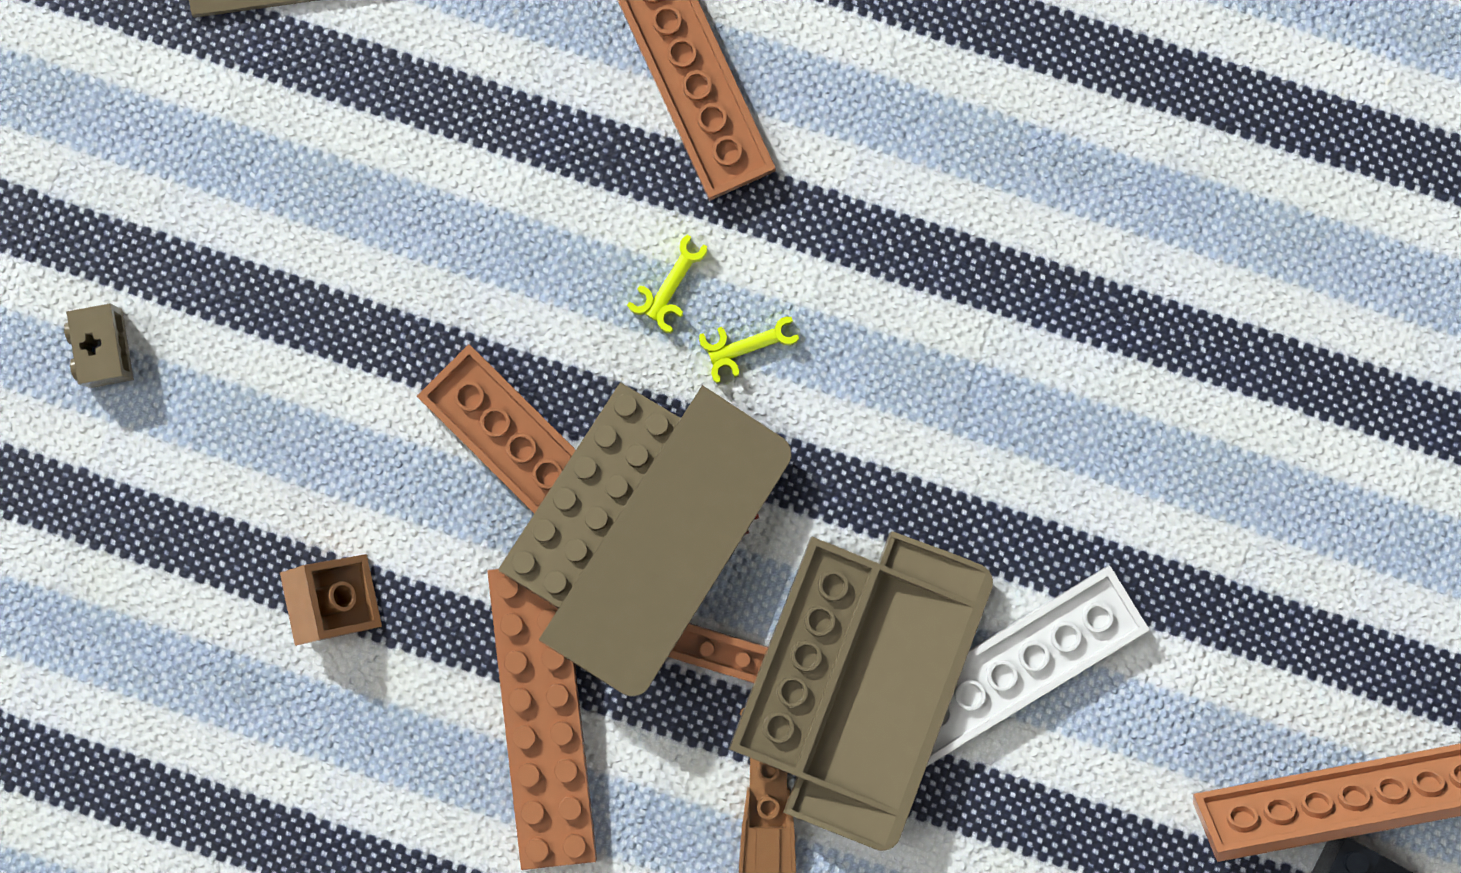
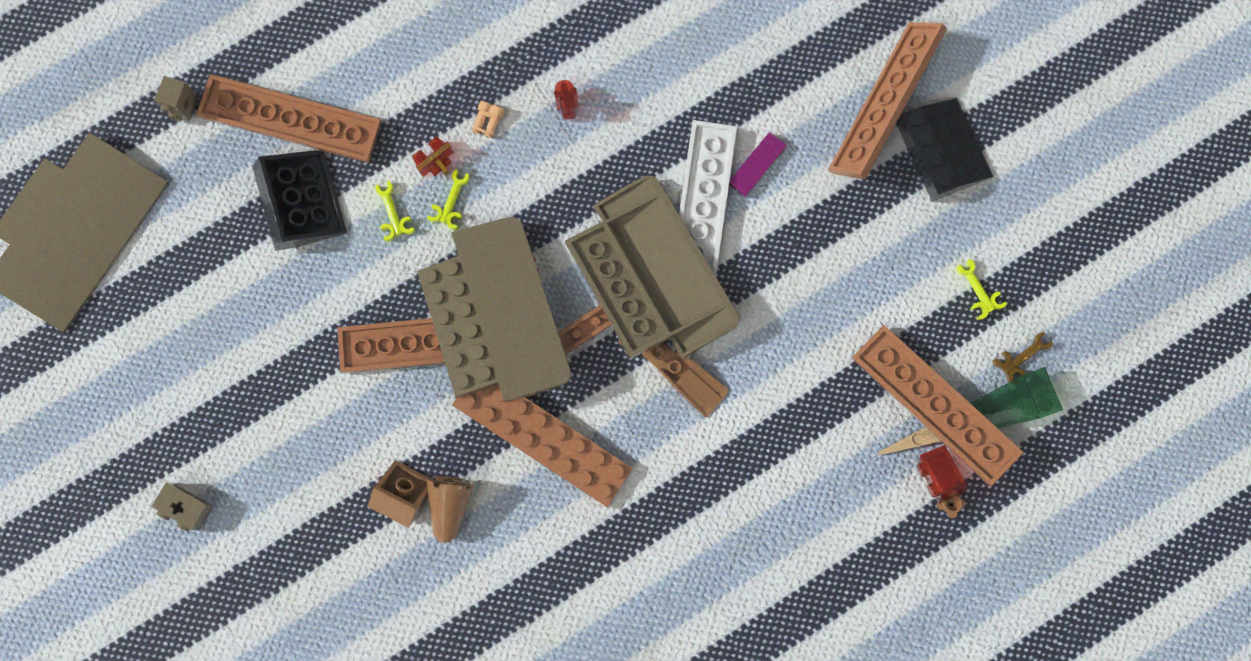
camera: 55 degrees left, 5 degrees down
(363, 669) = (448, 505): none -> medium nougat cone
(590, 155) = (298, 198): none -> black slope
(765, 274) = (436, 161): none -> clear red hips
(902, 294) = (489, 111): none -> light nougat piece
(1000, 380) = (566, 99): none -> clear red hips
(1122, 696) = (757, 164): none -> magenta tile

